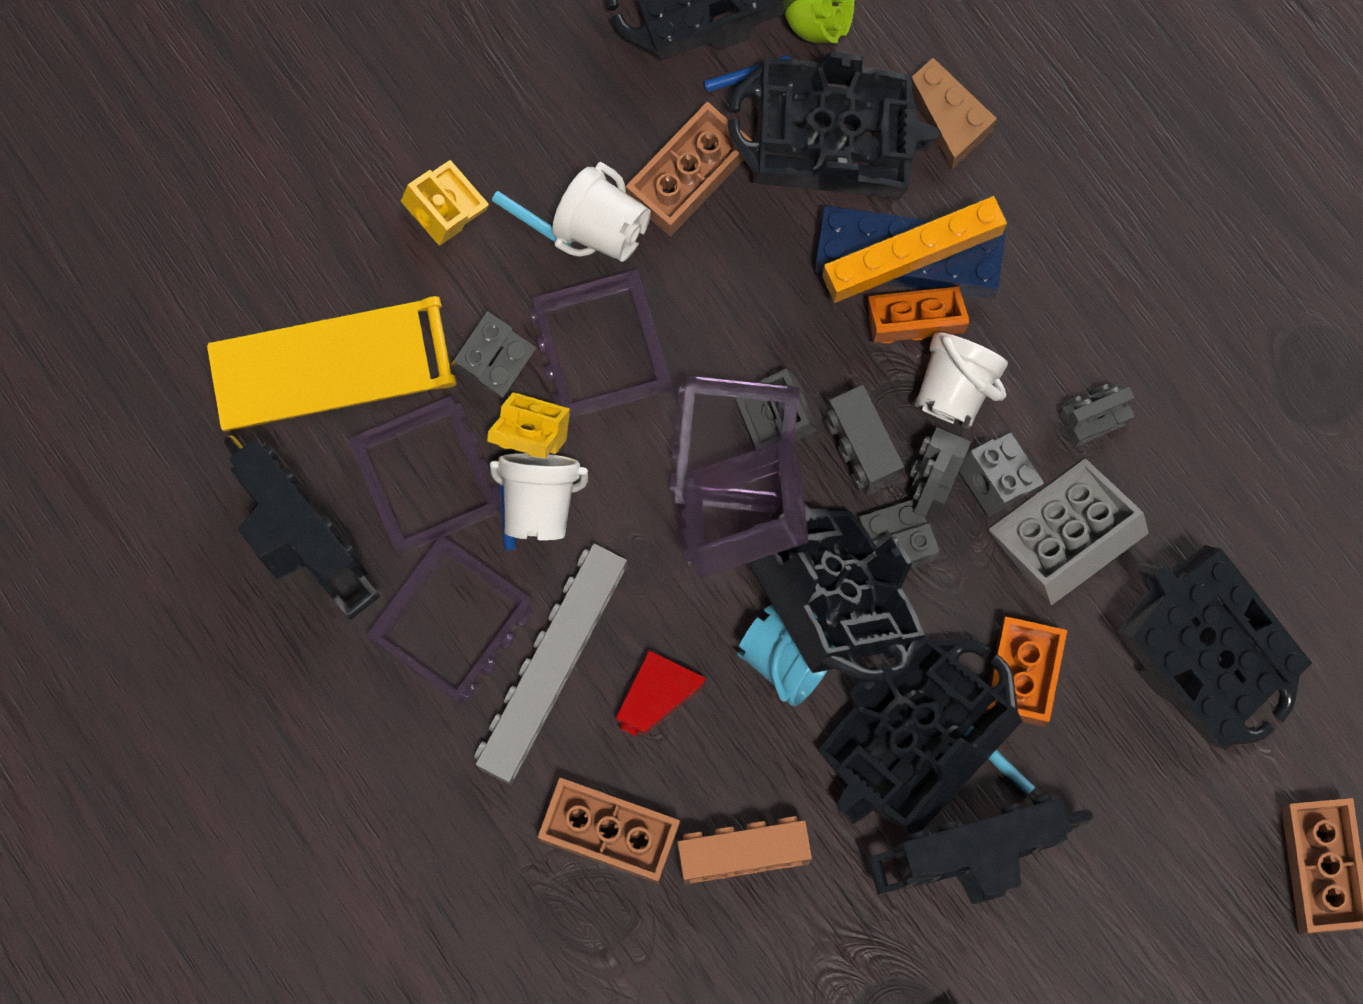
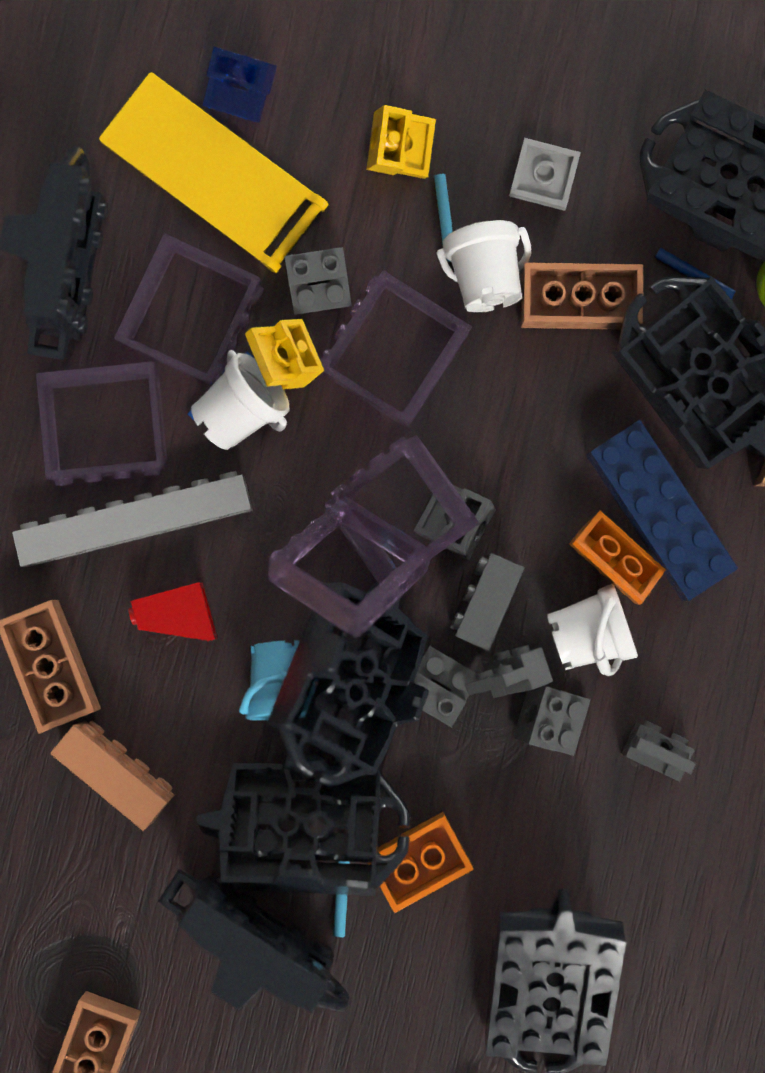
camera: 50 degrees right, 10 degrees up
(276, 272) = (241, 70): none -> clear blue brick
(567, 117) = (544, 174): none -> light grey plate
(914, 249) = (662, 516): light orange brick -> none
(1069, 531) = (553, 804): light grey slope -> none

